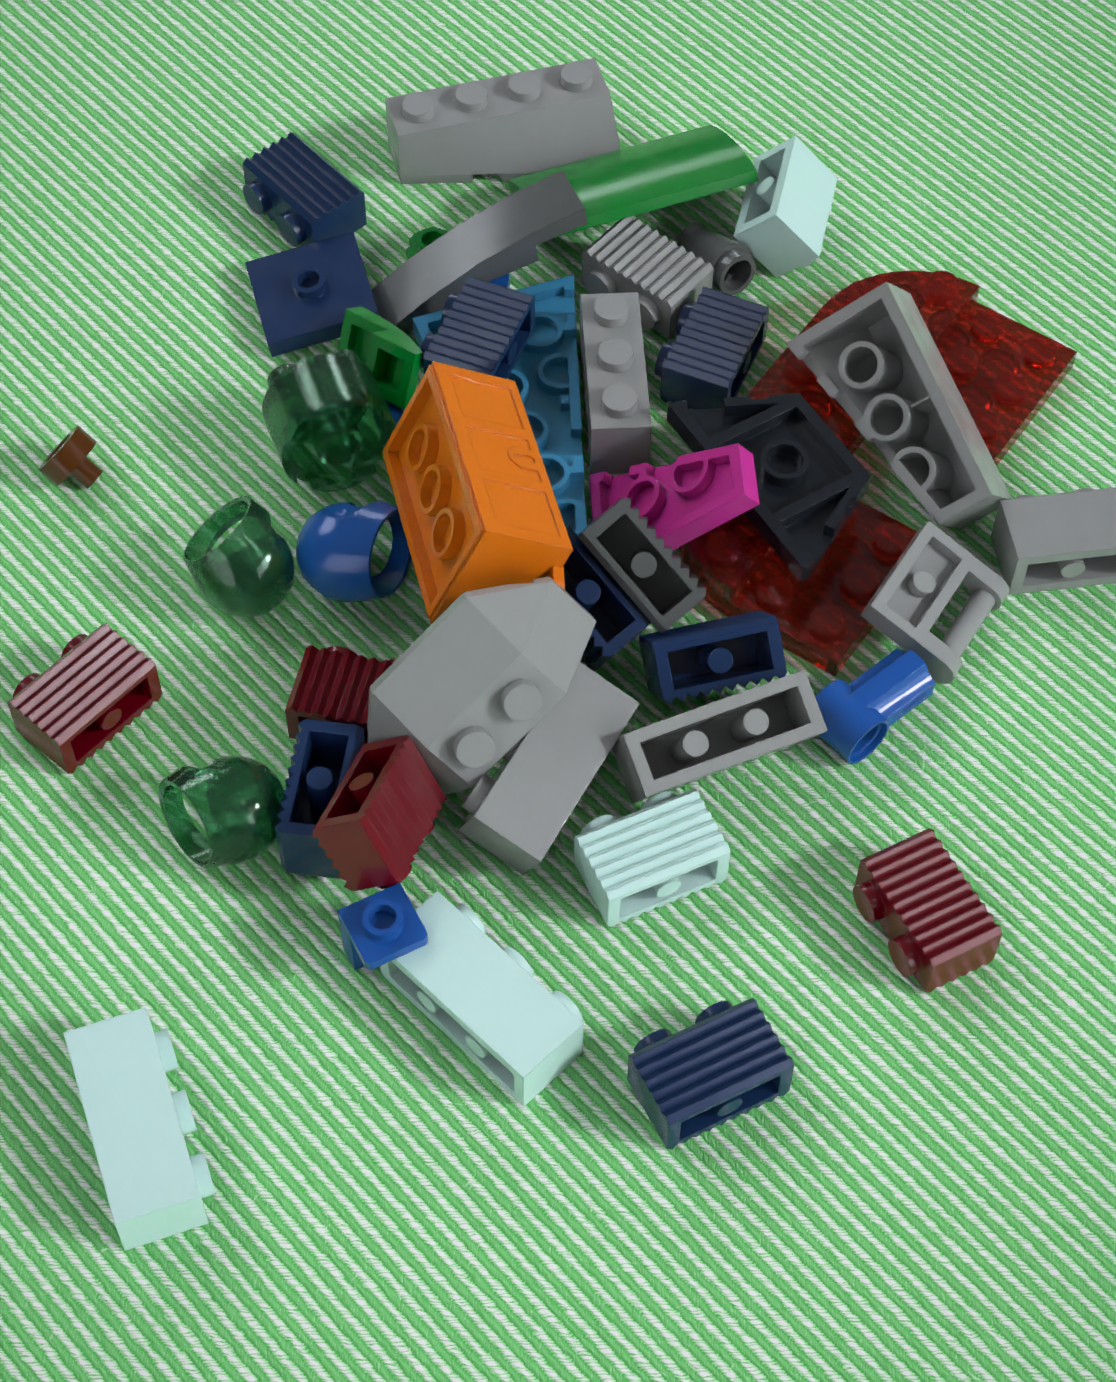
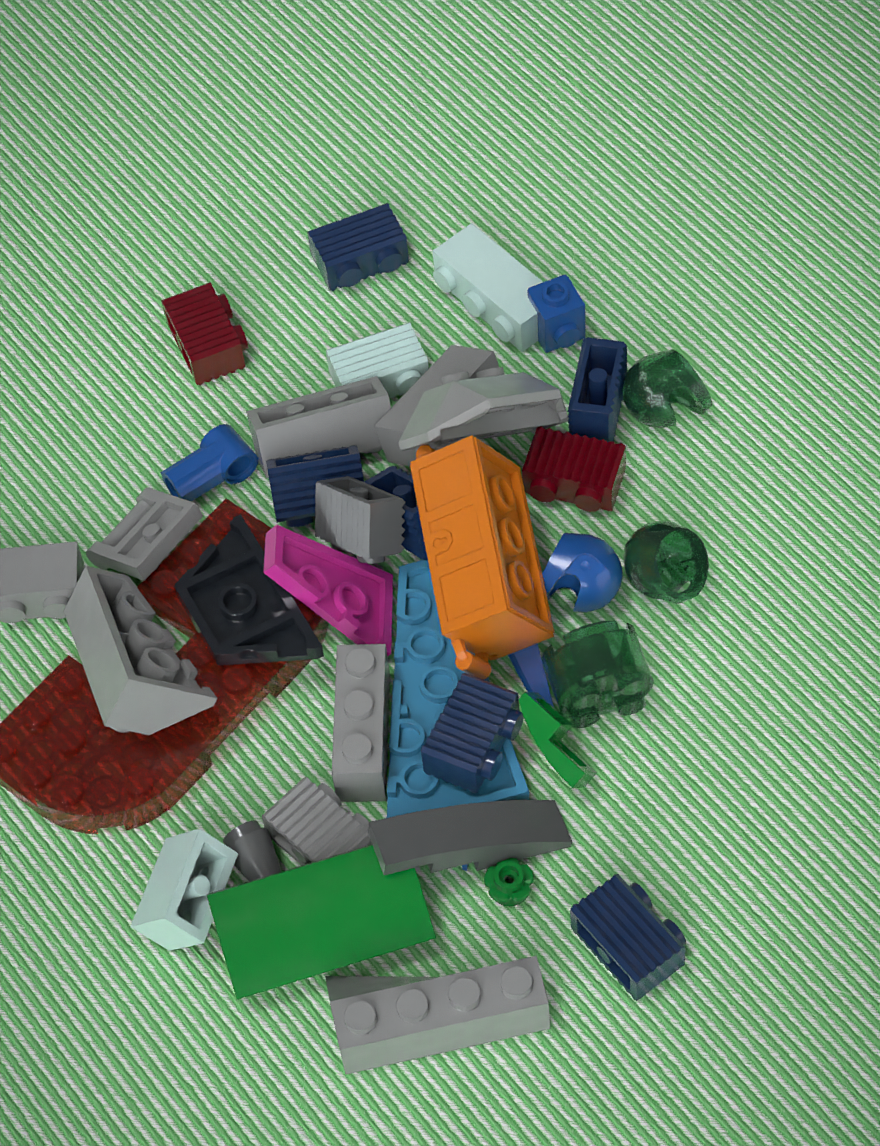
camera: 170 degrees left, 0 degrees up
(71, 458) = (812, 671): reddish brown tile -> none
(85, 697) = (774, 478): brick -> none
(139, 1128) = (707, 223): light aqua brick -> none
(308, 290) = (617, 833): dark blue plate -> none
(380, 814) = (560, 344): dark red brick -> none
(712, 349) = (273, 754): dark blue brick -> none

